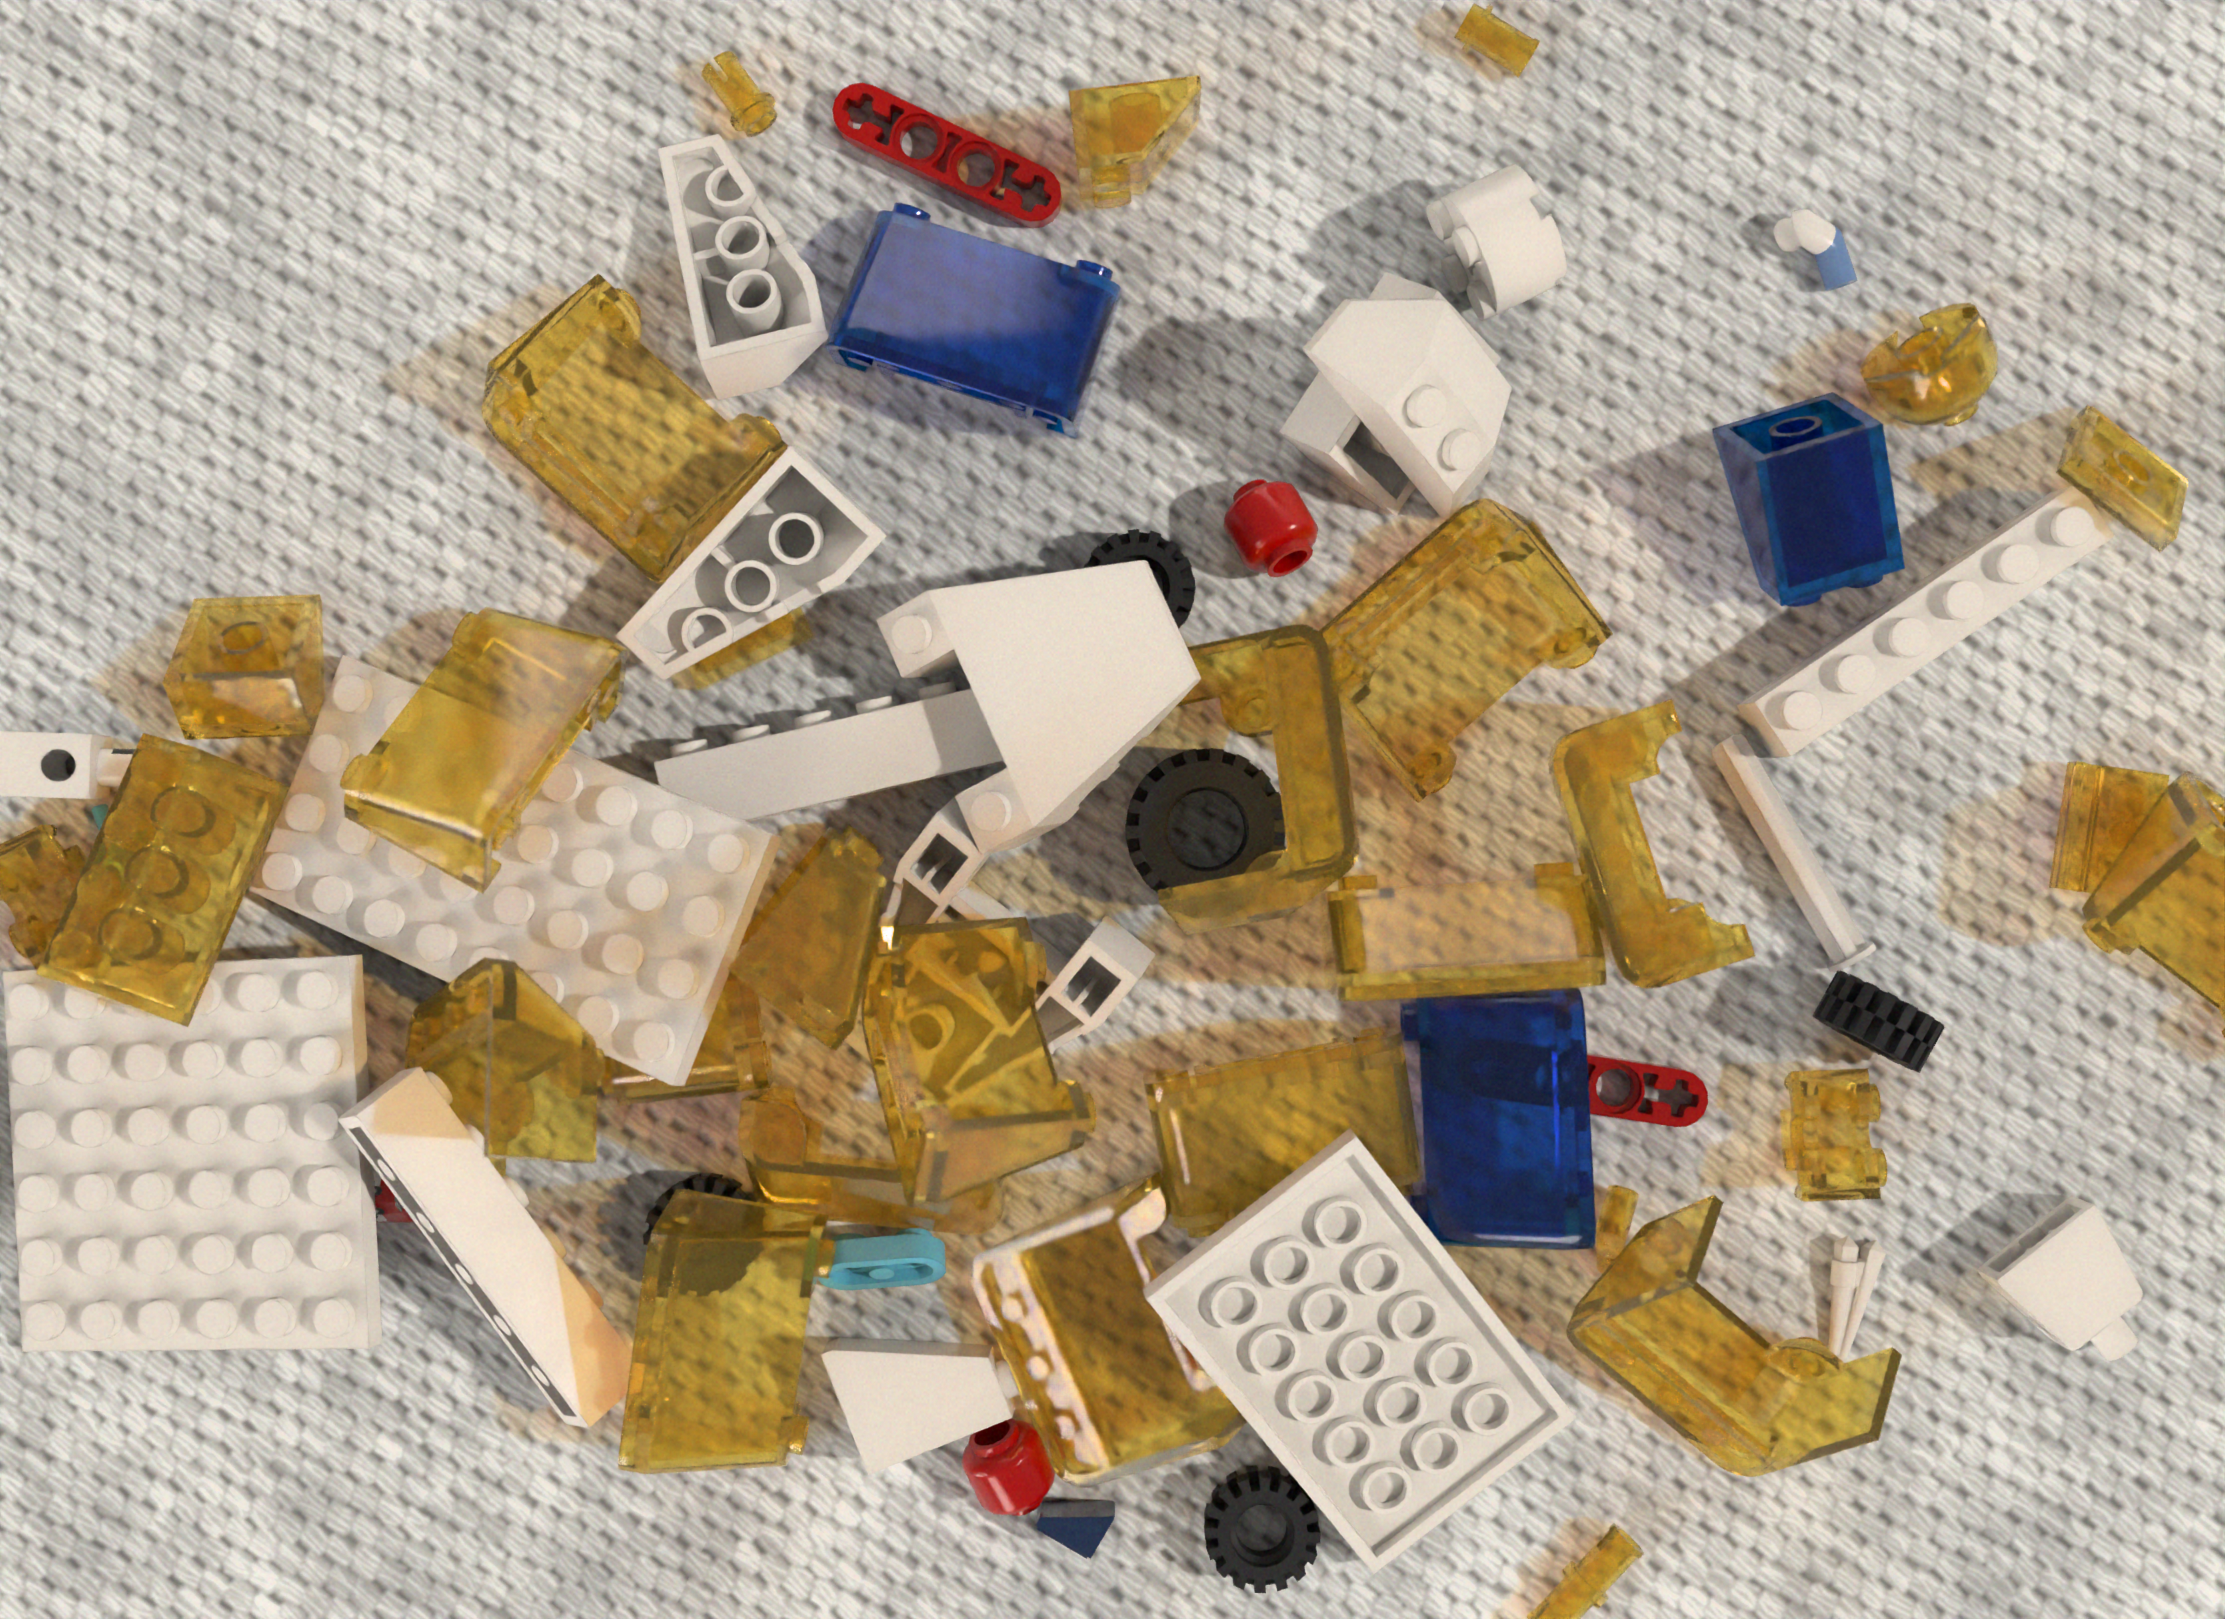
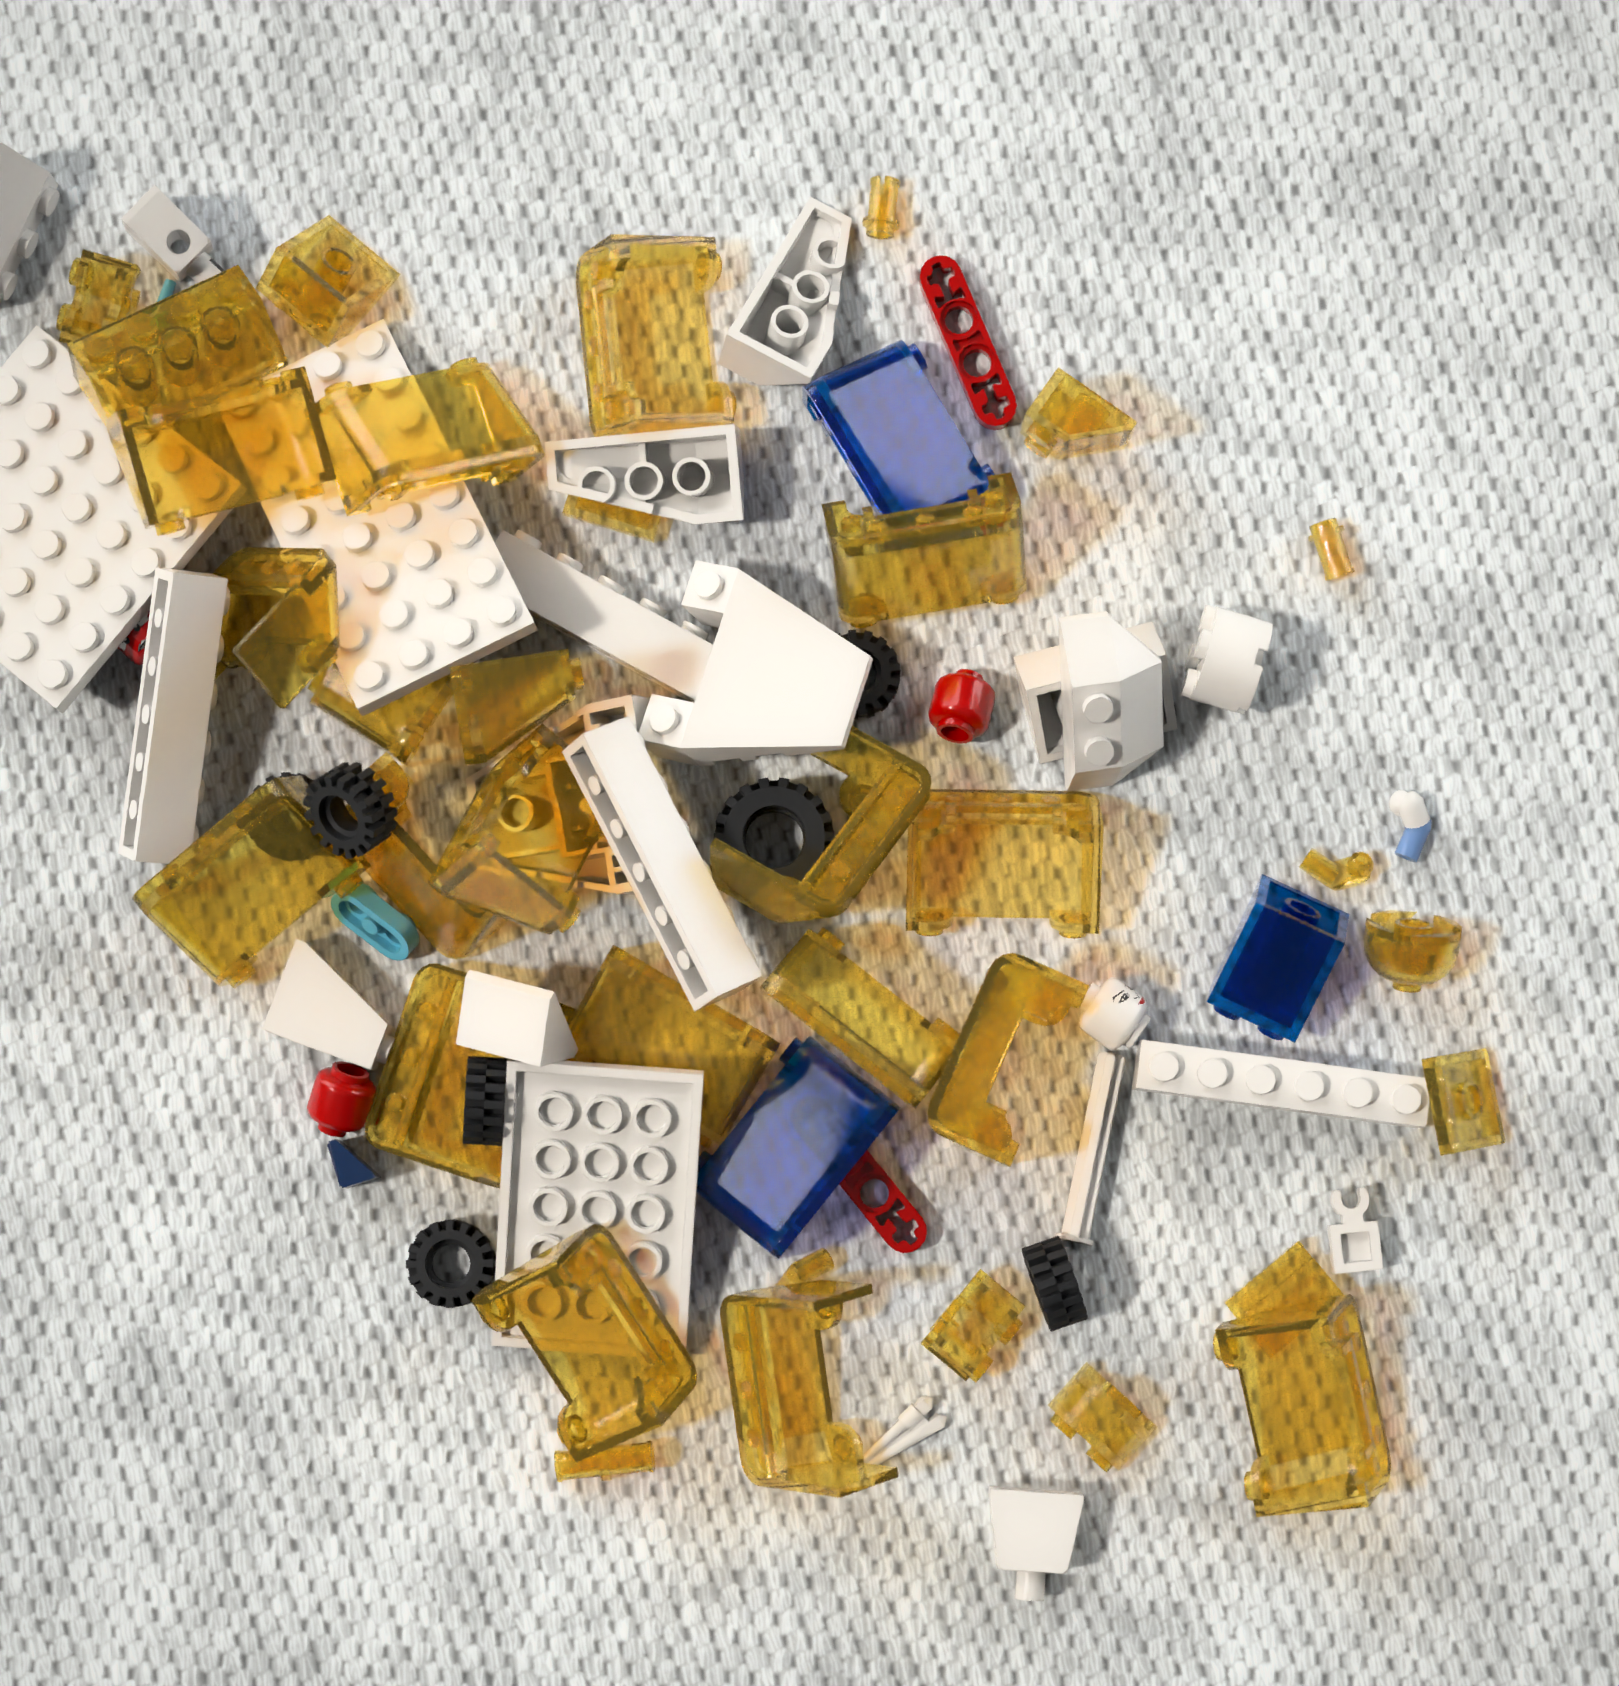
camera: 40 degrees right, 5 degrees down
(292, 944) = (222, 450): none -> clear yellow windscreen
(758, 1194) = (366, 799): none -> black tyre
(1105, 404) = (927, 555): none -> clear yellow windscreen
(1117, 1254) = (513, 1021): none -> white slope
(1123, 961) = (662, 863): none -> white brick
(1154, 1351) = (484, 1101): none -> black tyre
(1480, 1480) = (595, 1338): none -> clear yellow windscreen
(1704, 696) = (1113, 1014): none -> white head
(1790, 359) = (1340, 873): none -> clear yellow arm
(2030, 1109) = (1101, 1417): none -> clear yellow cylinder
(2128, 711) = (1354, 1243): none -> white plate

